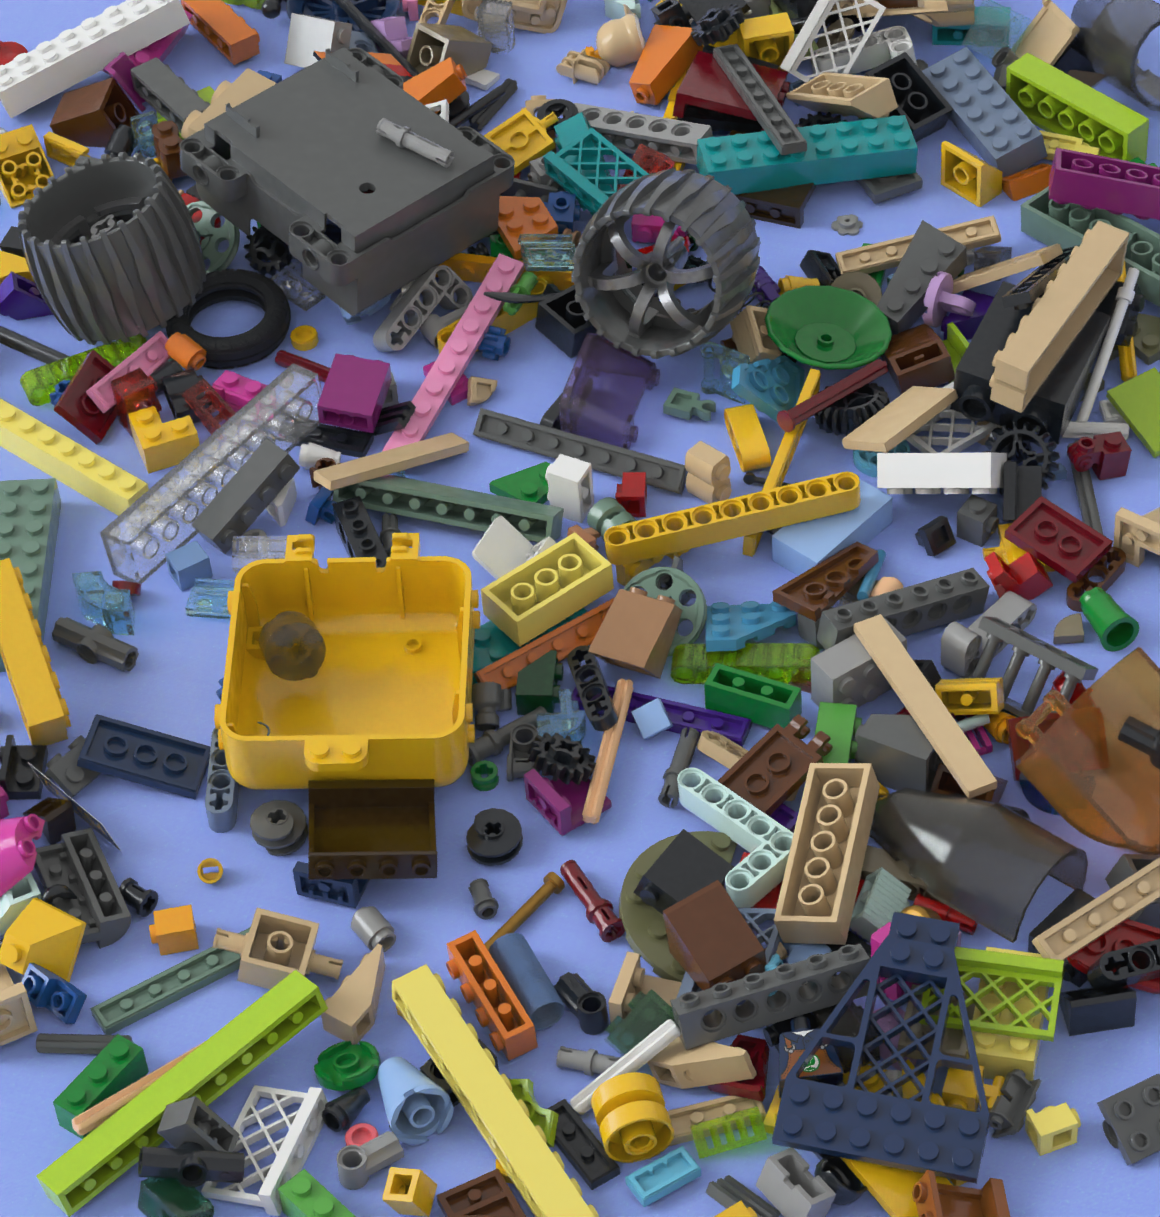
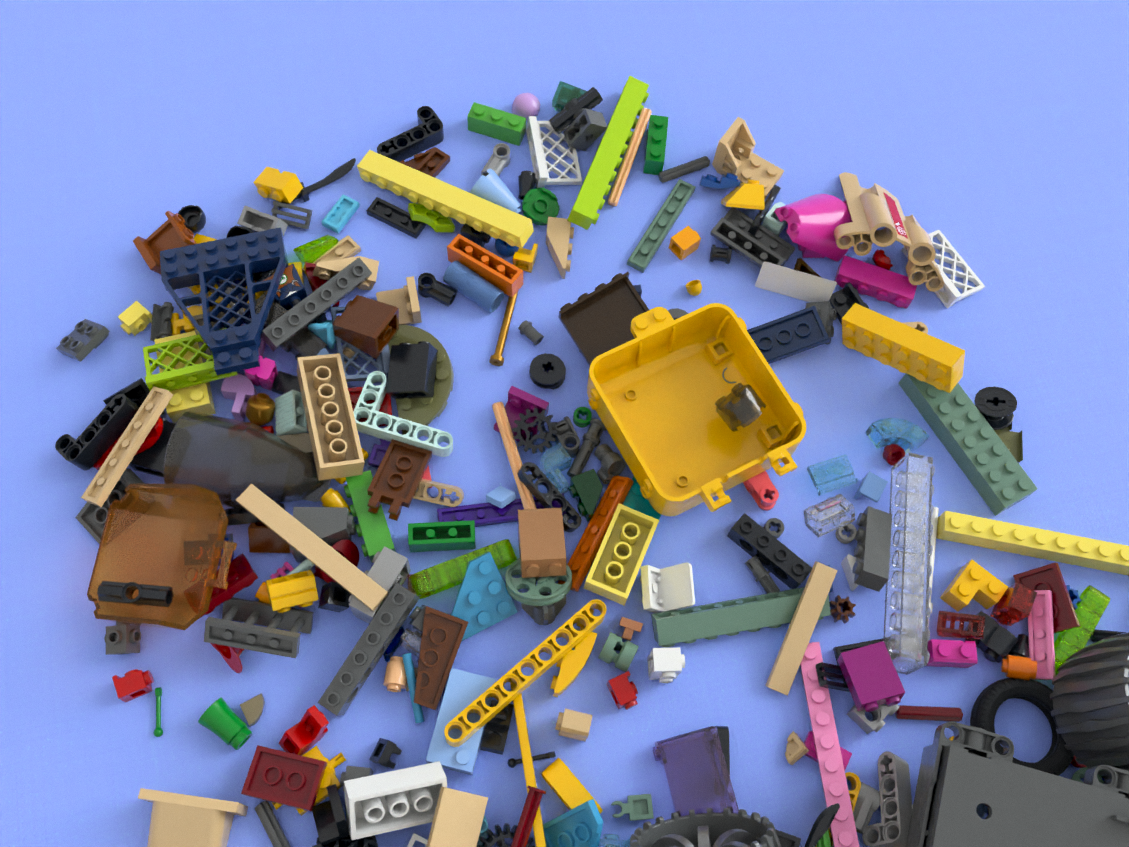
camera: 140 degrees right, 20 degrees up
(95, 644) = (878, 406): dark grey piece -> none
(276, 948) = (617, 242): tan brick -> none
(312, 453) = (860, 624): white cone -> none
(360, 1134) = (509, 177): coral tile -> none
(373, 928) = (577, 286): light grey brick -> none
(409, 1191) = (463, 148): yellow brick -> none
(495, 343) = (814, 800): blue gear -> none
(523, 485) = (700, 672): green wing -> none
(587, 1061) = (412, 259): light grey pin -> none
(598, 910) = (459, 351): dark red pin -> none
(601, 455) = (684, 718): dark grey tile -> none
(629, 1062) = (387, 249): white axle -> none
(632, 1117) = (368, 224): yellow wheel -> none
(646, 1015) = (389, 277): clear green brick -> none
(681, 760) = (464, 463): dark grey pin -> none
(963, 646) = (308, 670): light grey beam -> none
(1117, 561) = (238, 785): reddish brown beam -> none

